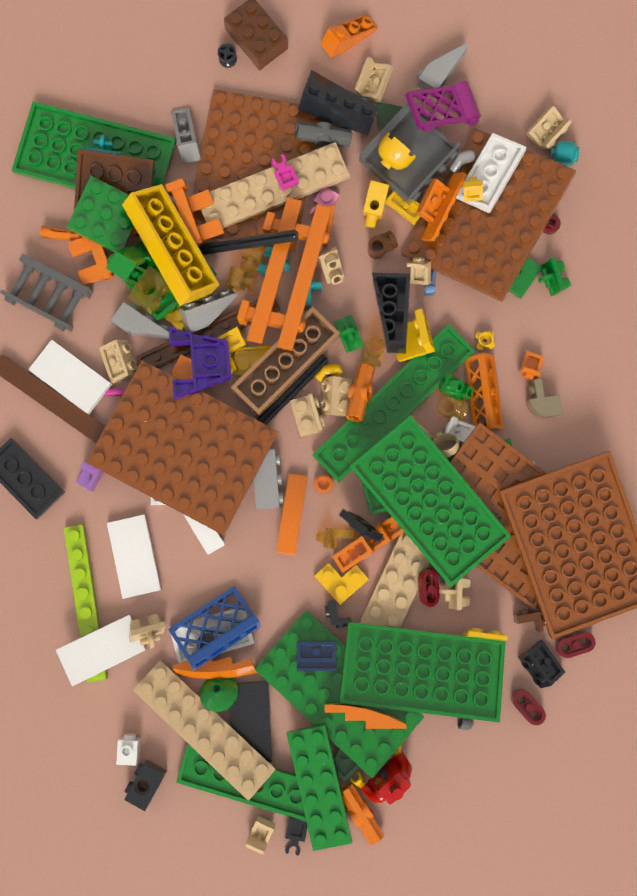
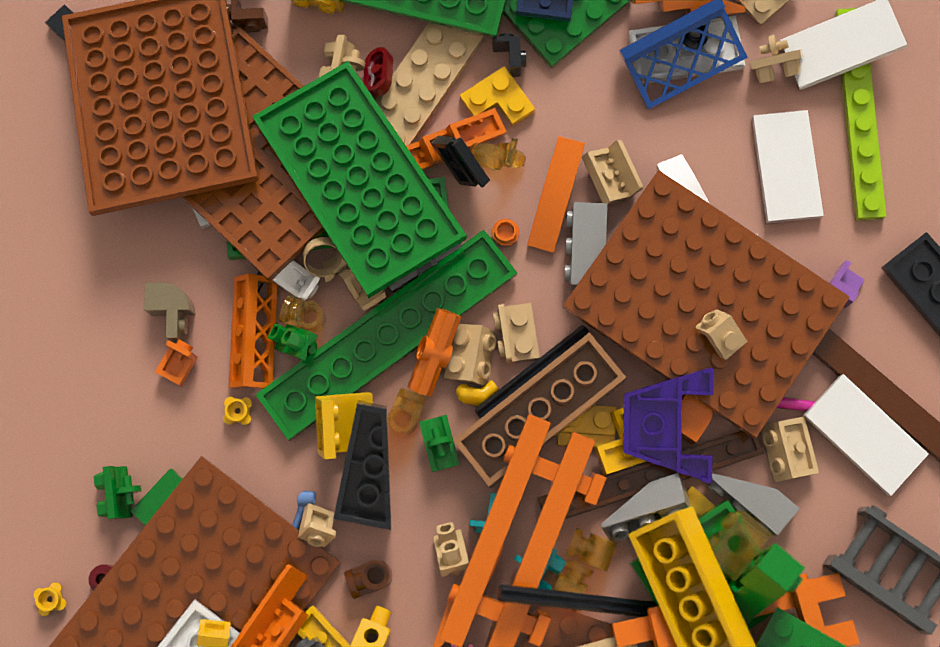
camera: 165 degrees left, 5 degrees down
(170, 422) = (722, 333): none -> tan bracket
(254, 533) = (613, 173): none -> tan bracket
(588, 208) = (41, 599): none -> yellow plate

